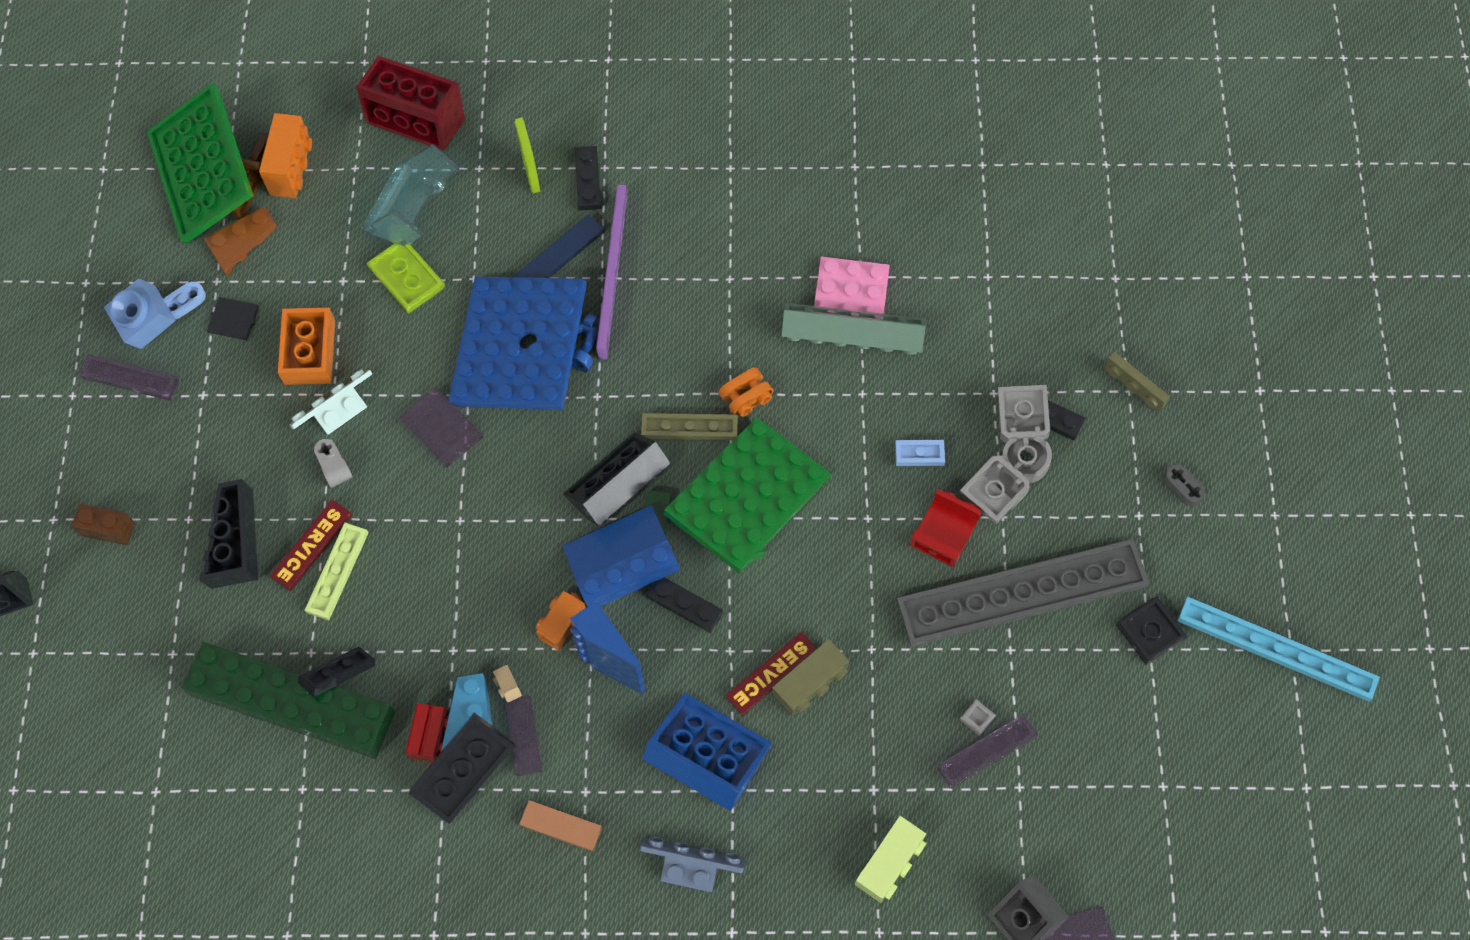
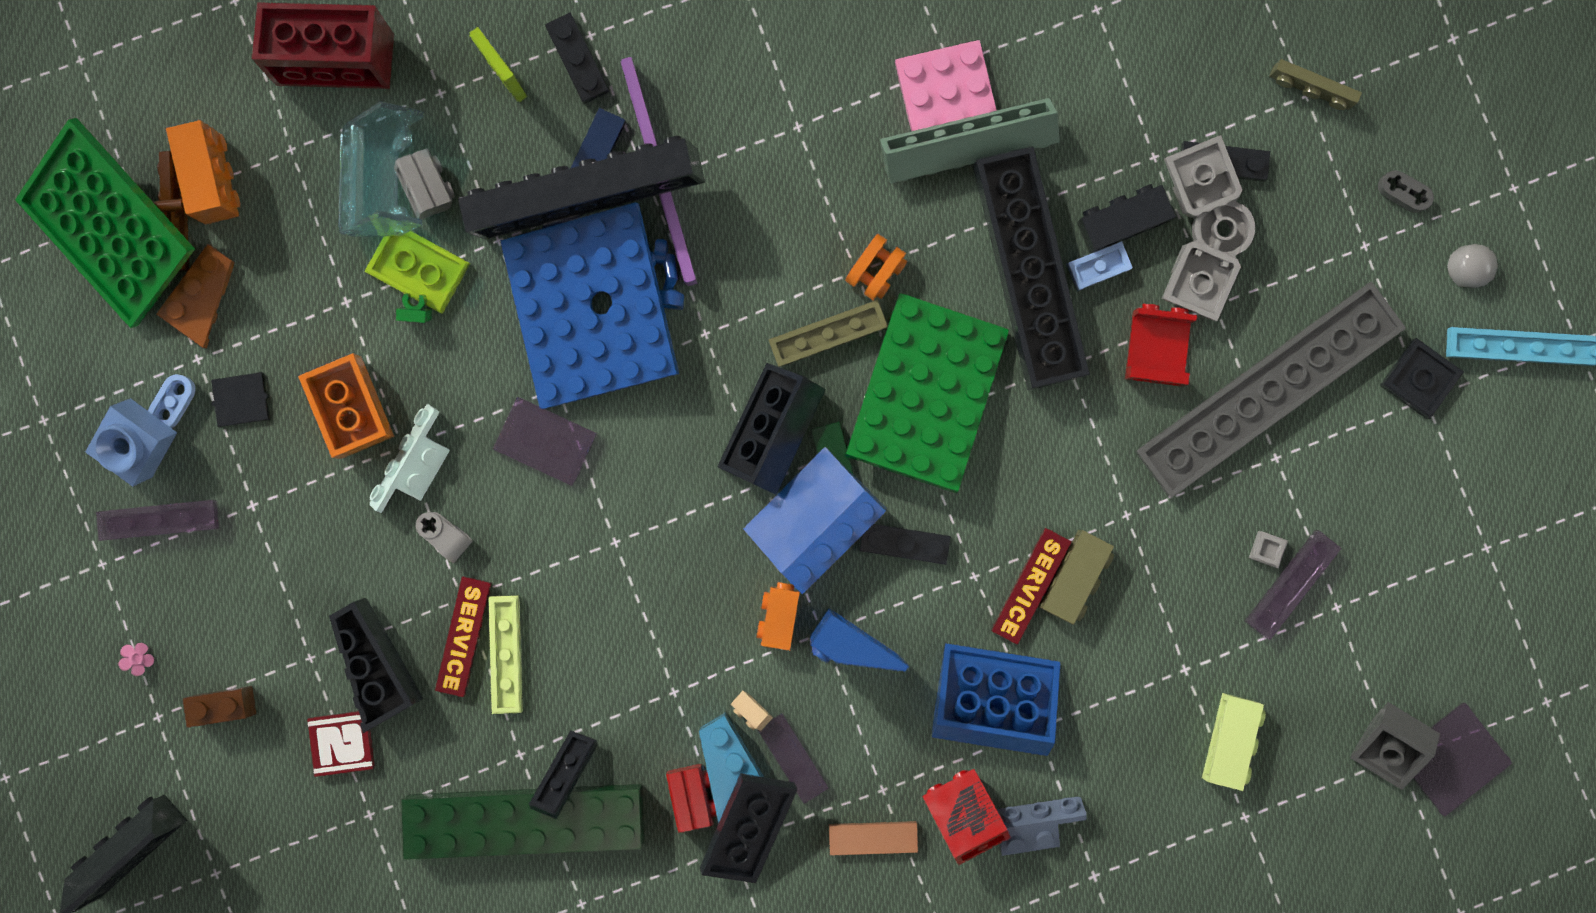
camera: 25 degrees left, 20 degrees up
(60, 469) = (135, 658): none -> bright pink plant
(177, 590) = (339, 744): none -> tile
(388, 302) = (412, 312): none -> green tile
(437, 218) = (423, 183): none -> light grey brick
(549, 255) = (582, 188): none -> black brick
(642, 830) = (966, 816): none -> red panel
(863, 434) = (1030, 268): none -> black brick
(954, 424) = (1125, 218): none -> black brick
(1221, 559) = (1472, 266): none -> light grey hair

